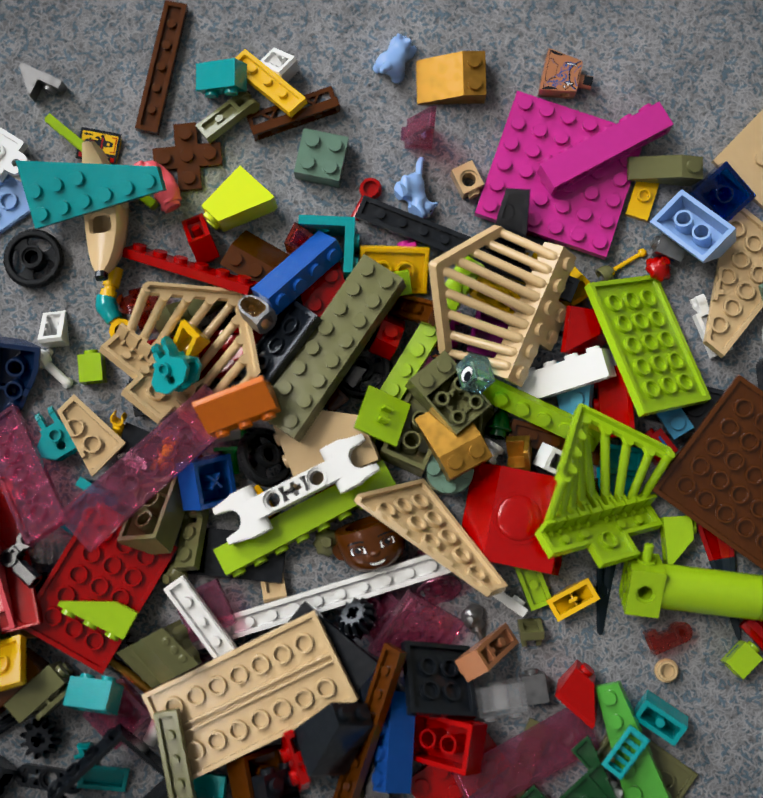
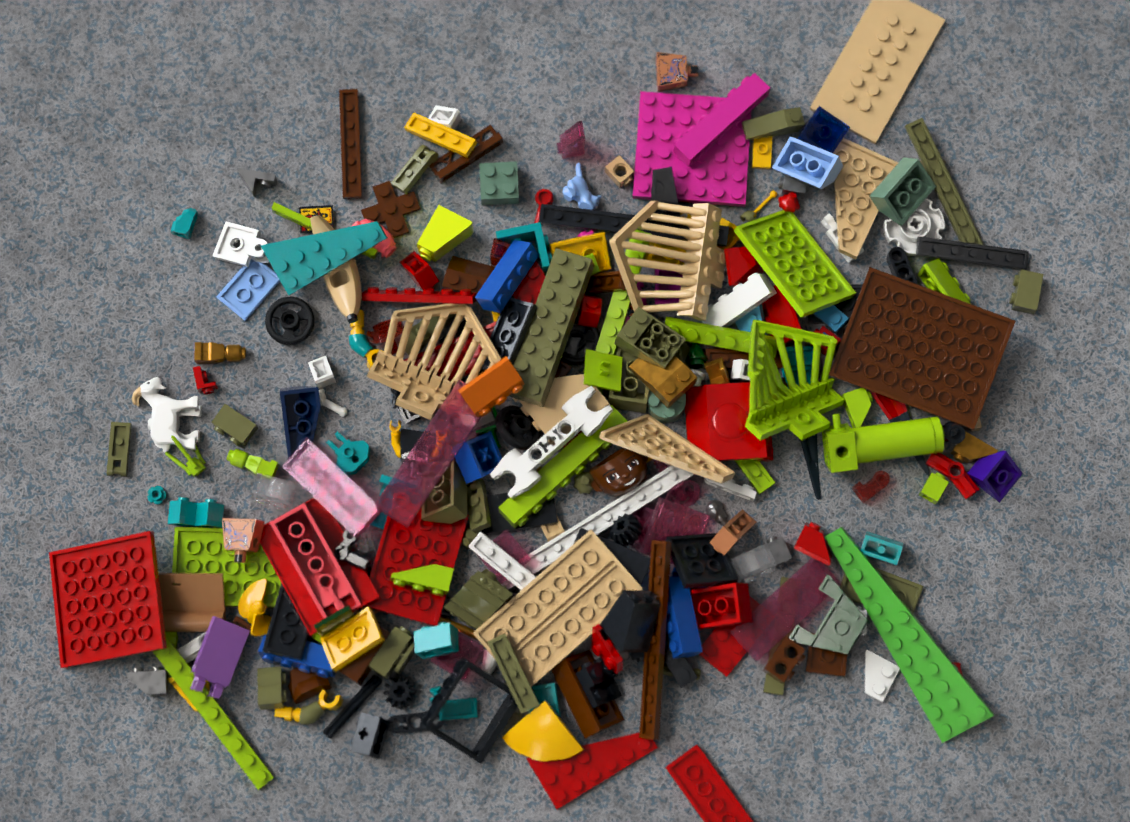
camera: 15 degrees left, 5 degrees down
(91, 435) = (377, 444): tan wing -> none
(92, 367) = (360, 394): lime brick -> none
(173, 368) = (433, 374): teal hinge -> none
(190, 339) = (436, 352): yellow slope -> none
(221, 77) = (402, 140): teal brick -> none
(257, 313) = (484, 315): flat silver rock -> none
(394, 59) = (535, 92): light blue animal -> none
(452, 79) = (585, 95): slope -> none
(475, 373) = (666, 317): clear light blue brick -> none
(530, 630) = (763, 508): olive tile -> none
(573, 599) = (789, 474): yellow slope -> none
(612, 767) = (859, 559): teal slope -> none
(666, 670) = (877, 513): tan plate -> none

